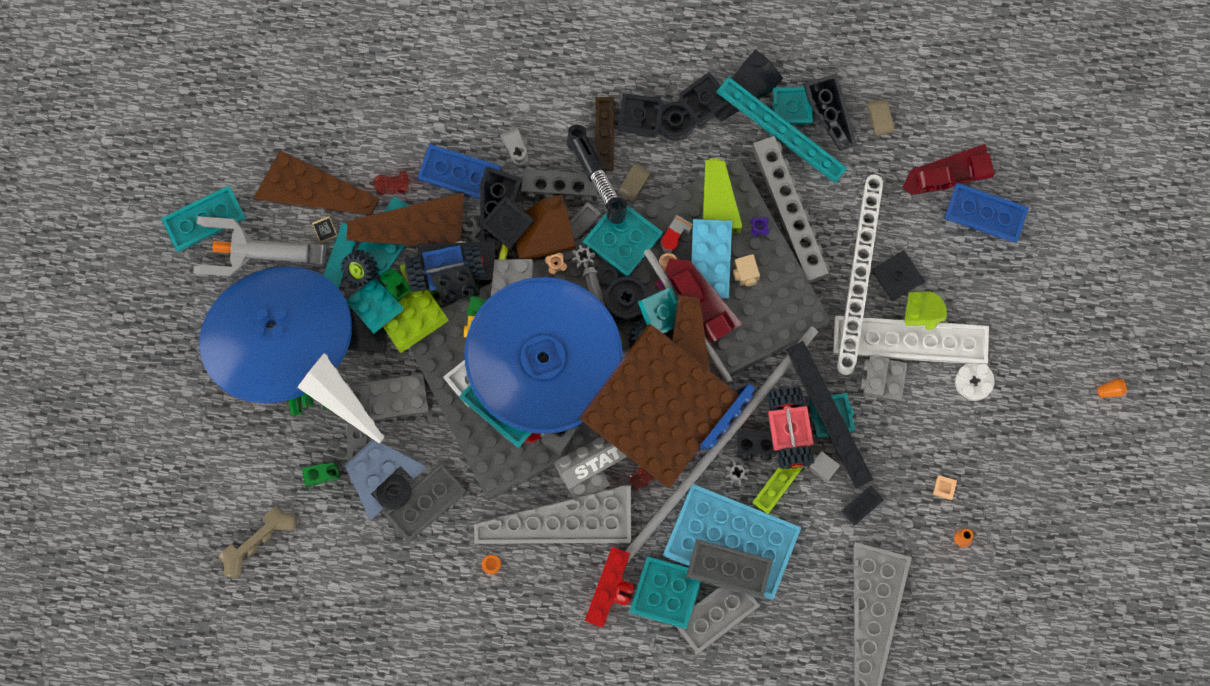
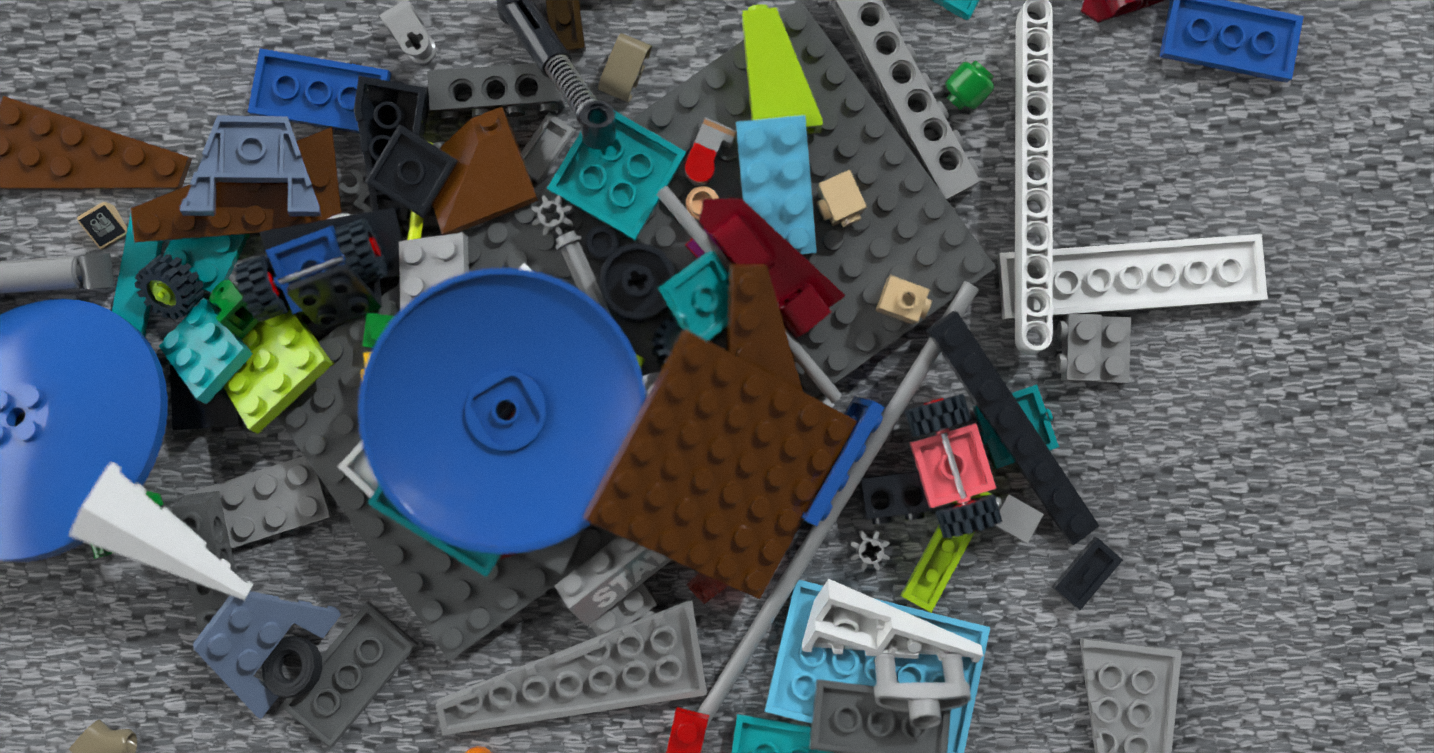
camera: 15 degrees left, 10 degrees up
(320, 474) = (160, 655): green leg -> none
(392, 184) = (194, 131): clear red leg -> none
(422, 200) = (251, 152): none -> sand blue wing
(550, 260) = (497, 230): light nougat plate -> none
(724, 511) = (859, 622): none -> white wedge
(755, 555) = (921, 699): none -> light grey connector
(759, 221) = (857, 108): dark purple plate -> none
(774, 331) = (903, 300): none -> tan brick
(831, 219) = (969, 85): none -> green head
(898, 275) = (1095, 167): black plate -> none
(925, 309) = (1151, 221): lime slope -> none
(944, 487) = (1220, 522): light nougat plate -> none
(959, 538) = (1265, 603): orange cone -> none
(968, 390) = (1264, 339): white plate -> none

